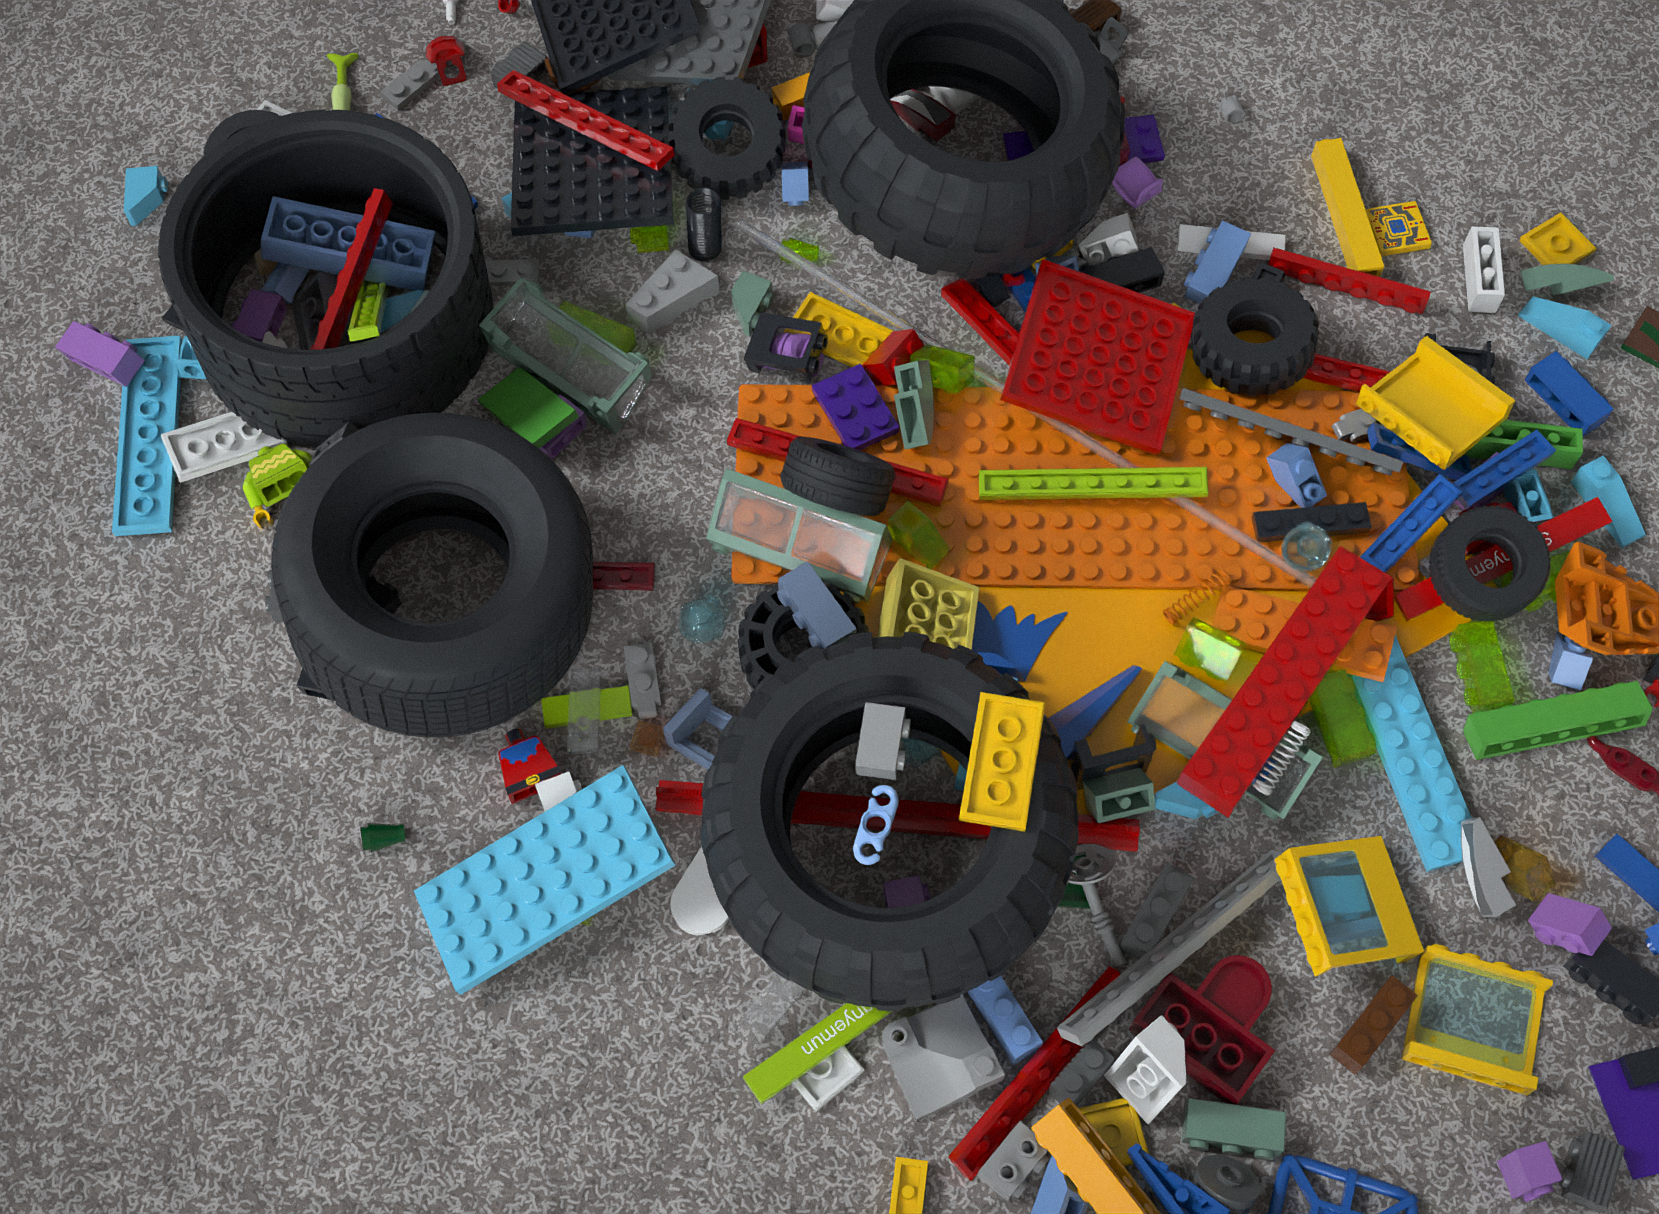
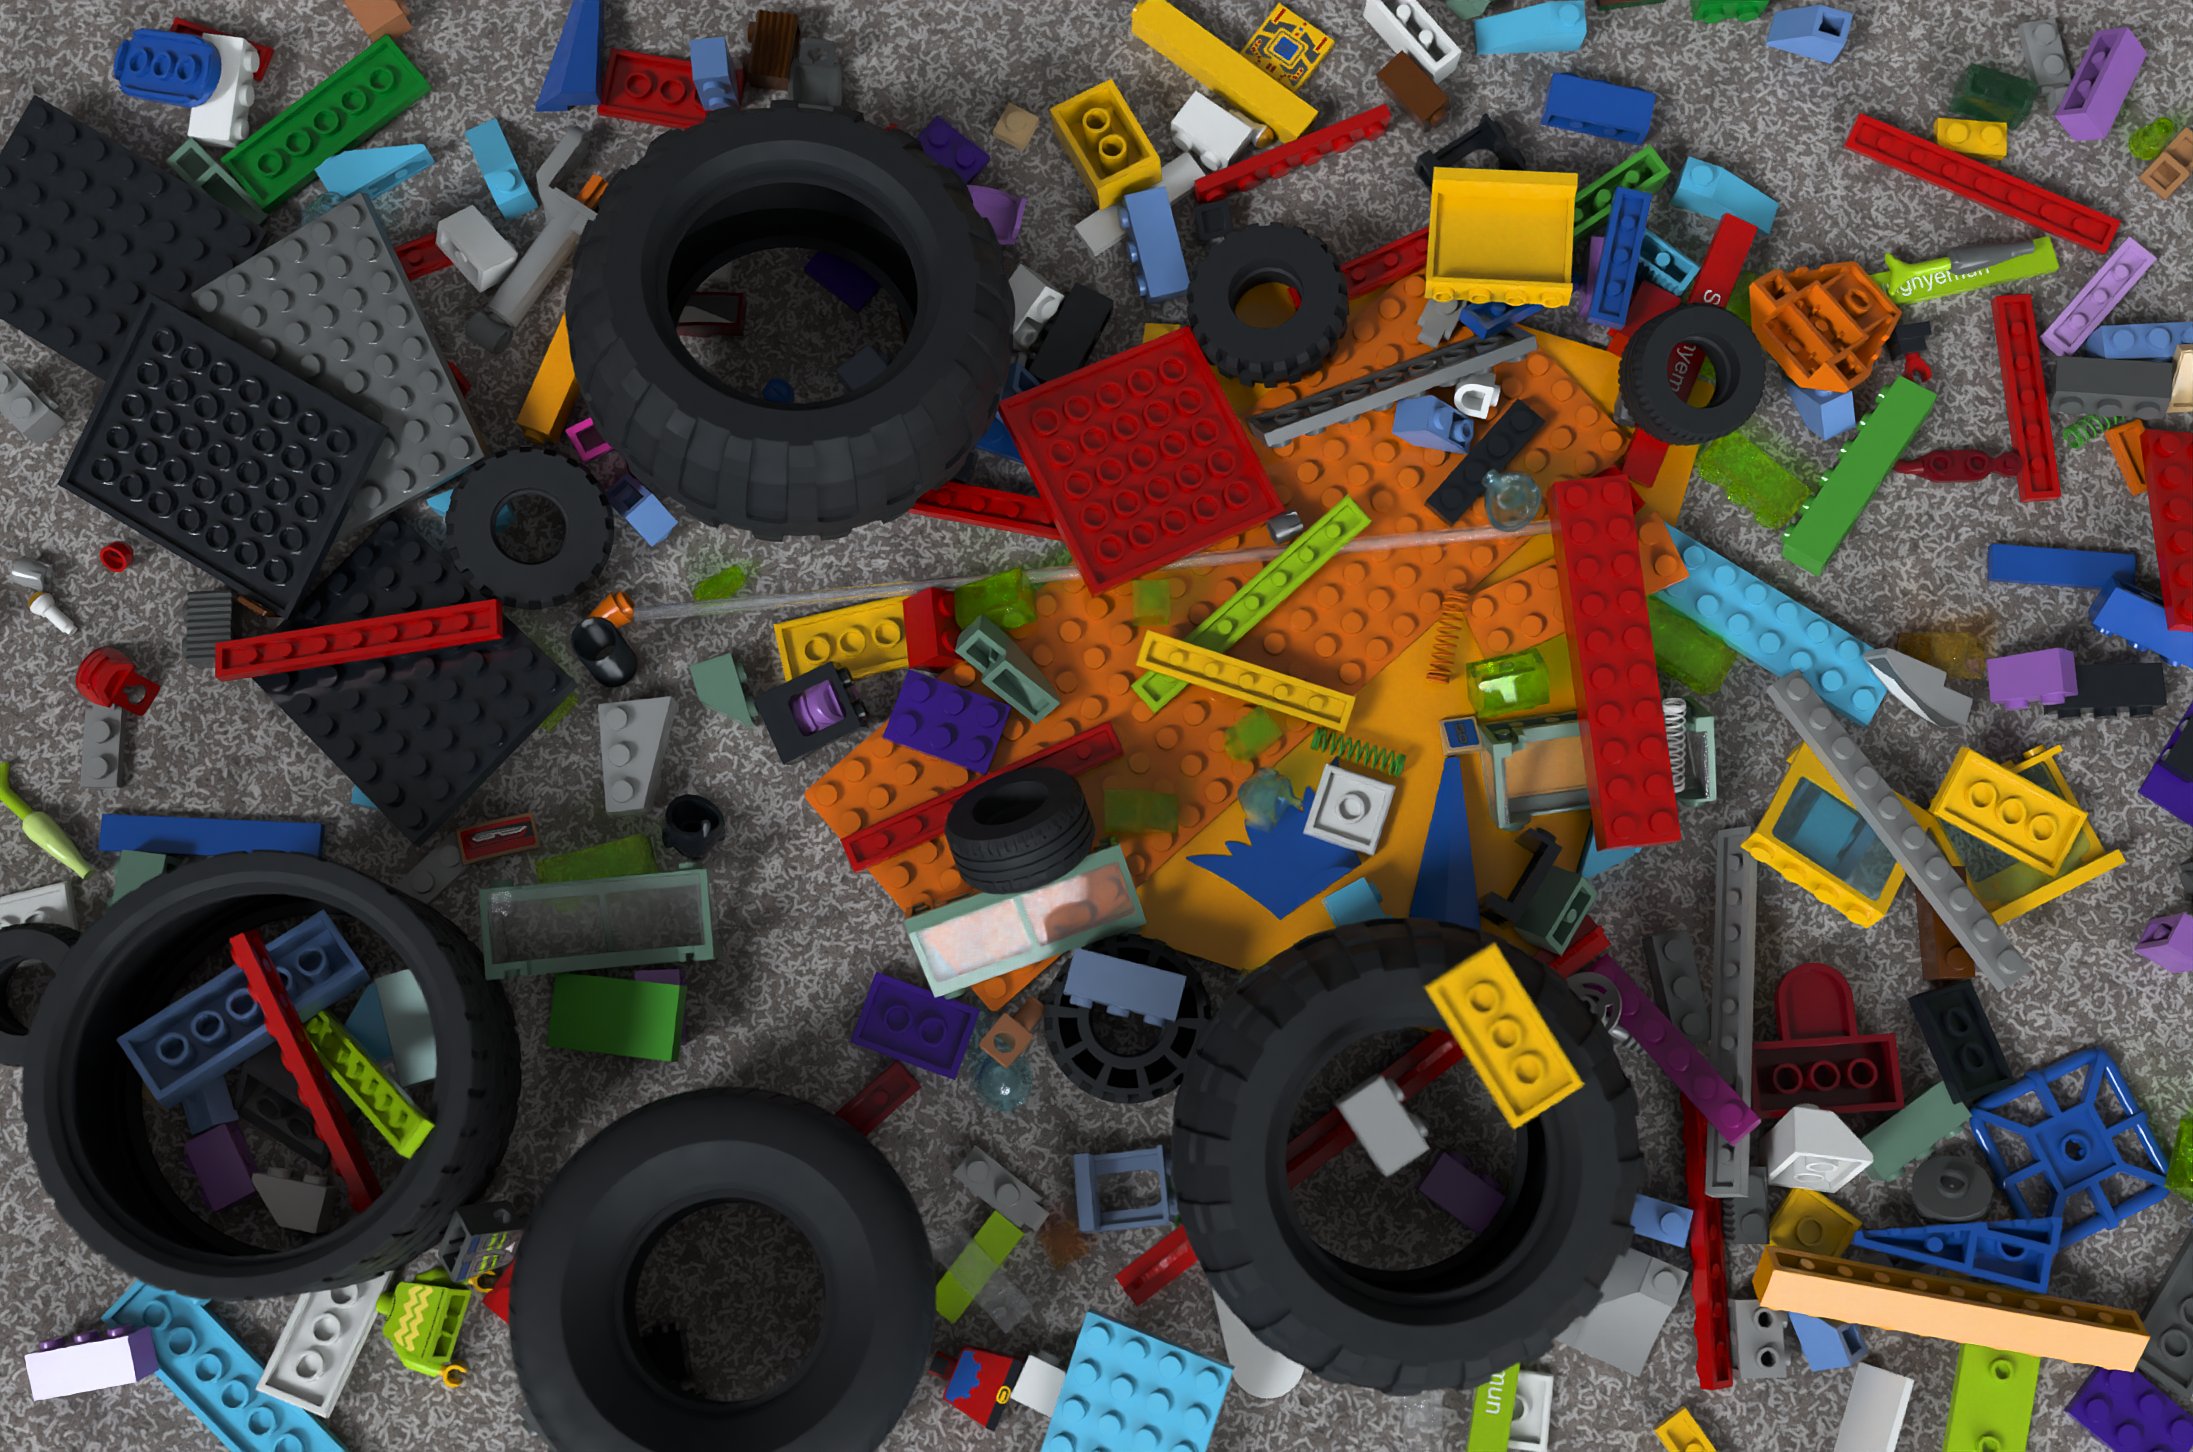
camera: 45 degrees left, 15 degrees up
(557, 278) = (497, 839): none -> slope
(665, 352) = (692, 826): none -> black helmet
(682, 553) = (915, 1026): none -> dark purple plate
(731, 217) = (615, 608): none -> orange cone
(731, 598) = (1013, 1031): none -> nougat bracket
(876, 839) = (1442, 1184): light blue piece -> none
(928, 605) = (1229, 897): light yellow slope -> none
(1001, 595) = (1266, 798): none -> clear light blue helmet
(1023, 551) = (1251, 736): none -> clear neon green brick
(1032, 435) = (1150, 602): none -> clear neon green brick
(1046, 644) = (1349, 810): none -> white tile
(1048, 518) = (1245, 681): none -> yellow plate
(1103, 641) = (1400, 759): none -> bright green piece
(1116, 937) = (1677, 1056): none -> magenta plate
(1151, 659) = (1460, 736): none -> slope
(1152, 458) = (1284, 527): none -> flat silver hose
(1195, 153) = (1016, 126): none -> tan plate
(1231, 109) = (1009, 43): light grey hose -> none
(1238, 191) = (1106, 144): none -> yellow brick
(1308, 232) = (1210, 132): none -> white brick
(1319, 1104) = (1961, 1041): none -> black tile
(1337, 256) = (1261, 134): none -> white piece
(1340, 478) = (1476, 394): none -> white plate
(1389, 936) = (1899, 831): none -> light grey plate
(1412, 524) = (1584, 390): blue tile -> none
(1455, 300) = (1414, 92): none -> reddish brown brick
(1479, 991) = (2008, 812): none -> yellow tile

